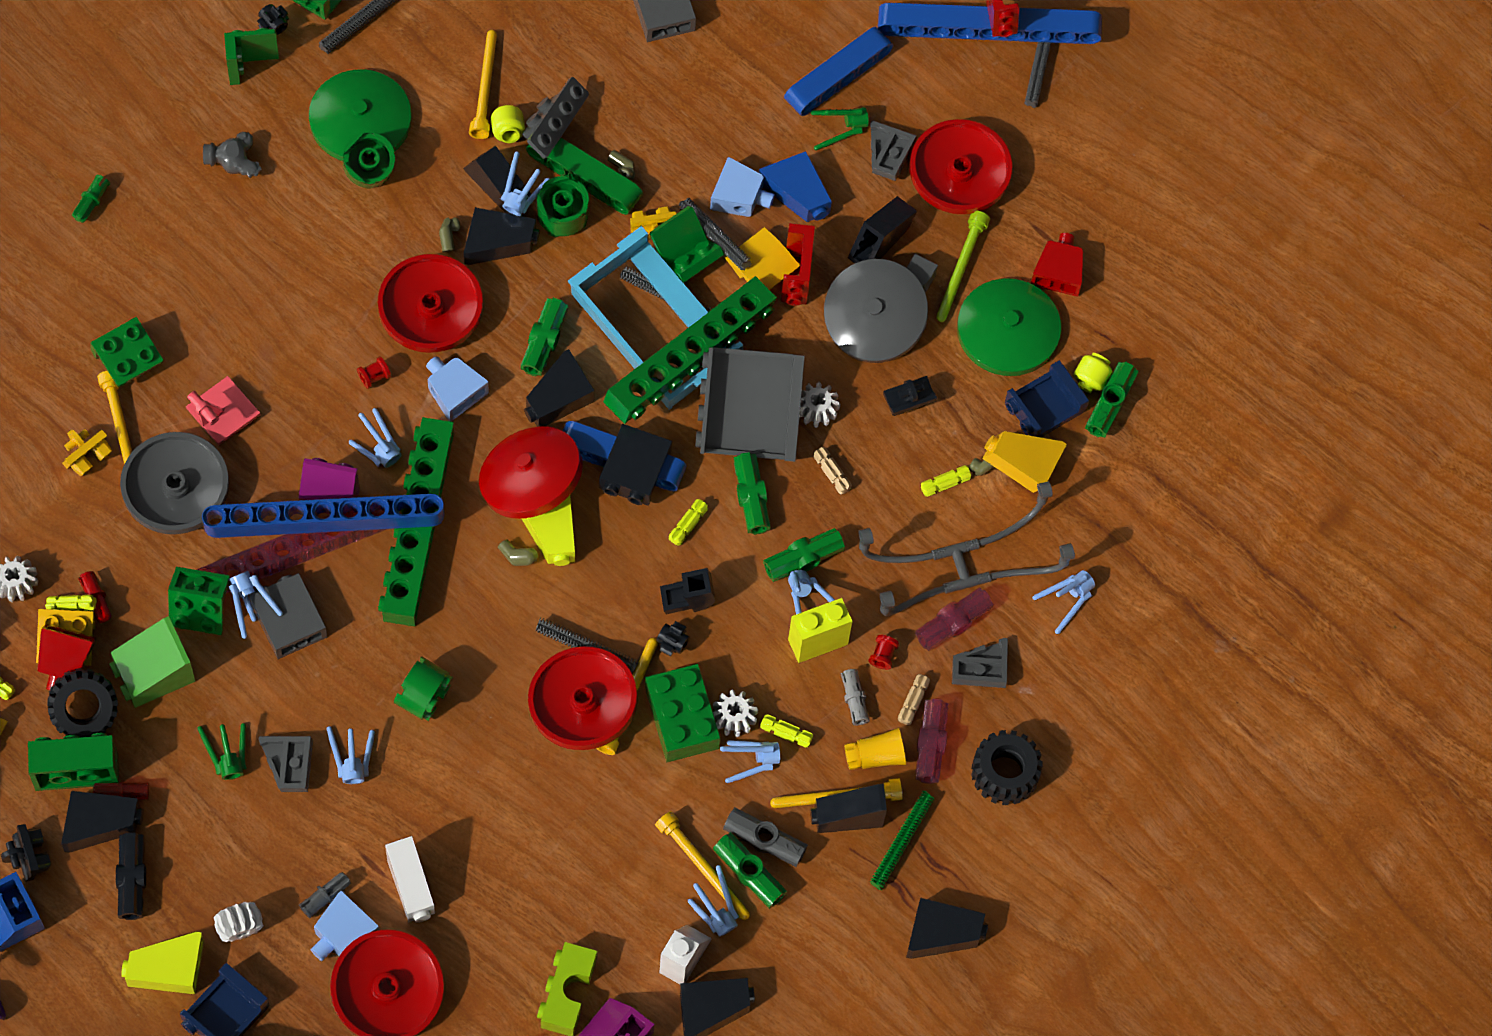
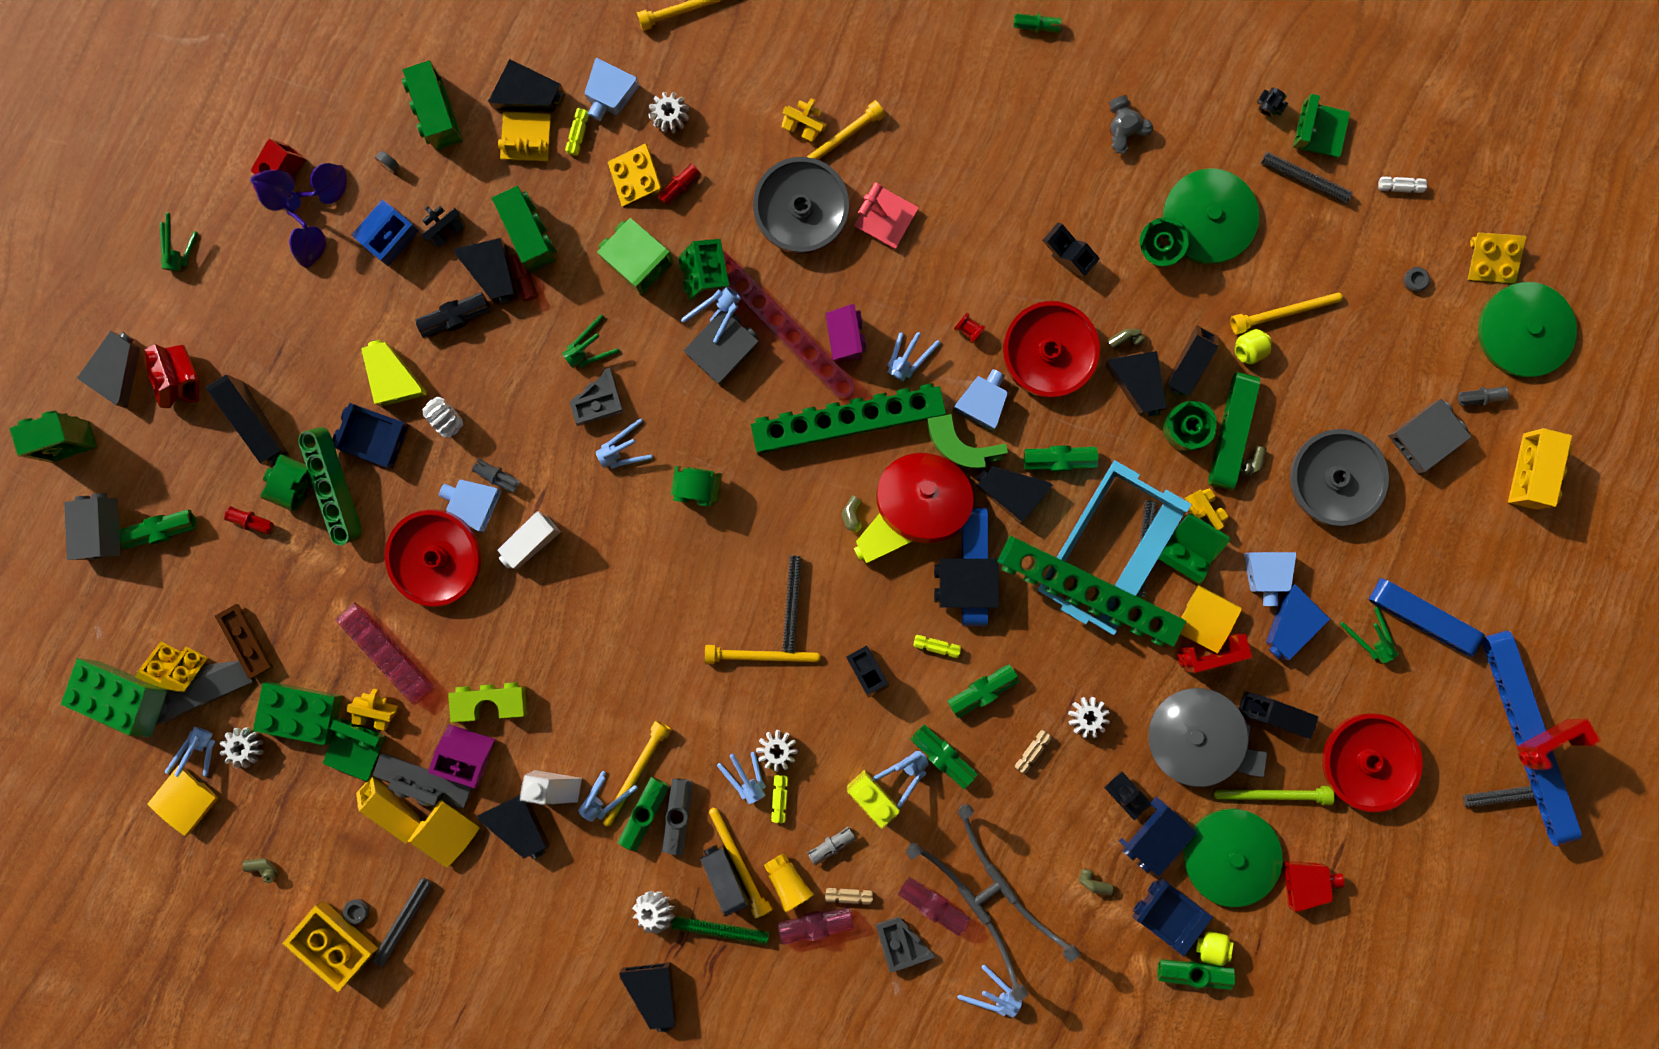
camera: 75 degrees right, 20 degrees up
(62, 652) = (614, 179): red torso -> none
(71, 602) = (664, 167): neon yellow axle -> none
(76, 681) = (559, 218): black tyre -> none
(126, 352) = (903, 114): green bracket -> none
(246, 47) = (1231, 84): green bracket -> none
(312, 508) = (812, 329): blue beam -> none
(341, 251) = (1069, 252): none -> black brick
(483, 435) = (950, 447): none -> bright green arch
(516, 201) = (1175, 386): light blue plant -> none
(554, 117) = (1273, 384): dark grey bracket -> none
(582, 698) = (739, 619): red dish -> none
(670, 94) = (1339, 477): none -> dark grey dish
(673, 638) = (823, 674): black gear -> none
(682, 713) = (759, 707): green brick -> none
(719, 237) = (1216, 570): dark grey axle -> none
(750, 403) = (1063, 662): dark grey panel -> none
(848, 893) = (653, 912): none -> white gear
(883, 652) = (880, 856): red bush -> none
(889, 149) = (1365, 691): dark grey wing -> none
(946, 480) = (1062, 853): neon yellow axle -> none
(964, 381) = (1159, 839): none -> dark blue panel
(1011, 747) = (813, 1019): black tyre -> none
(1024, 457) = (1105, 918): yellow slope -> none

